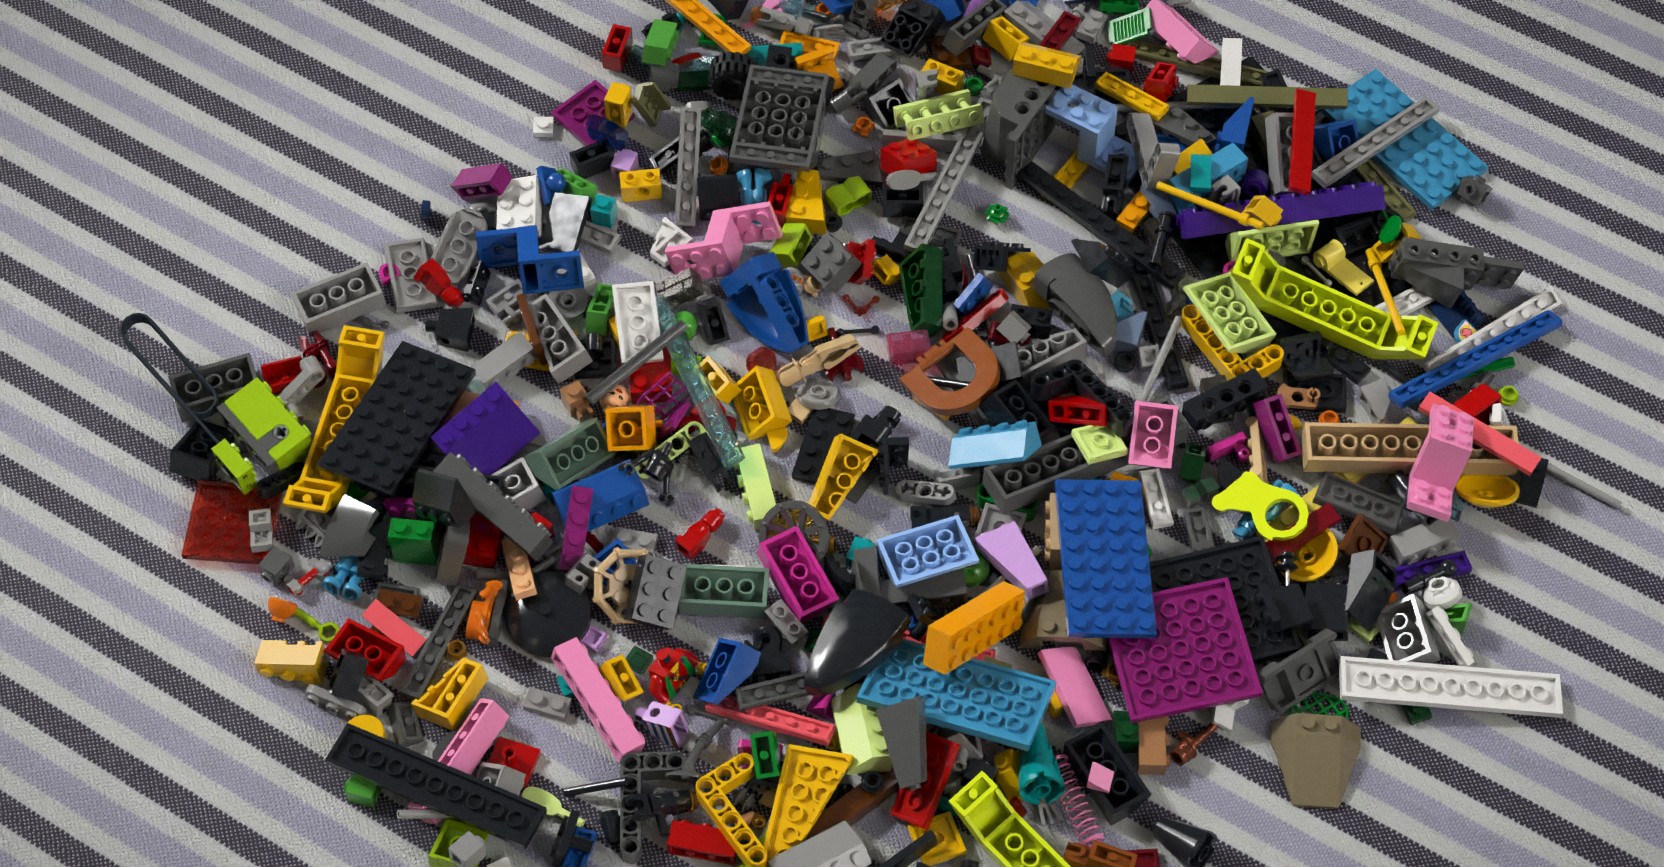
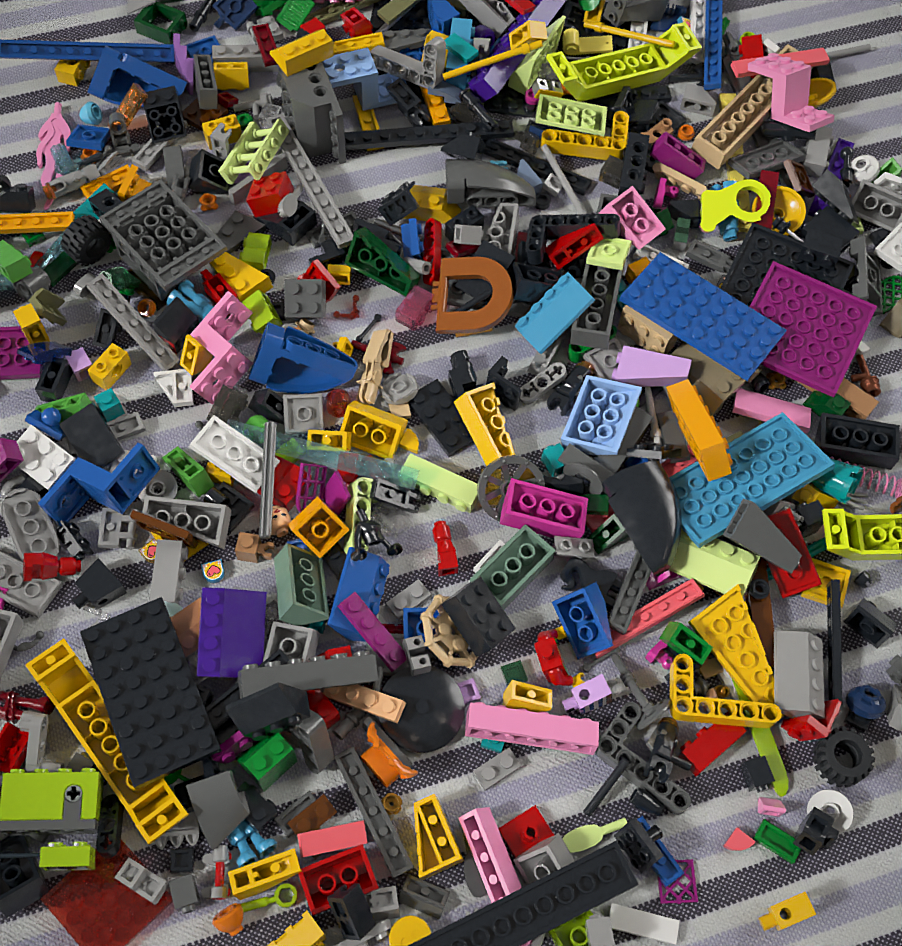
camera: 55 degrees left, 5 degrees up
(299, 548) = (182, 860): none -> black tile
(327, 600) = (263, 874): none -> yellow slope
(536, 392) = (213, 571): none -> tile
(699, 227) = (194, 356): none -> yellow slope
(727, 344) = (303, 413): none -> light grey tile
(997, 213) = (359, 182): green plant -> none
(1100, 778) = (868, 445): bright pink slope -> none

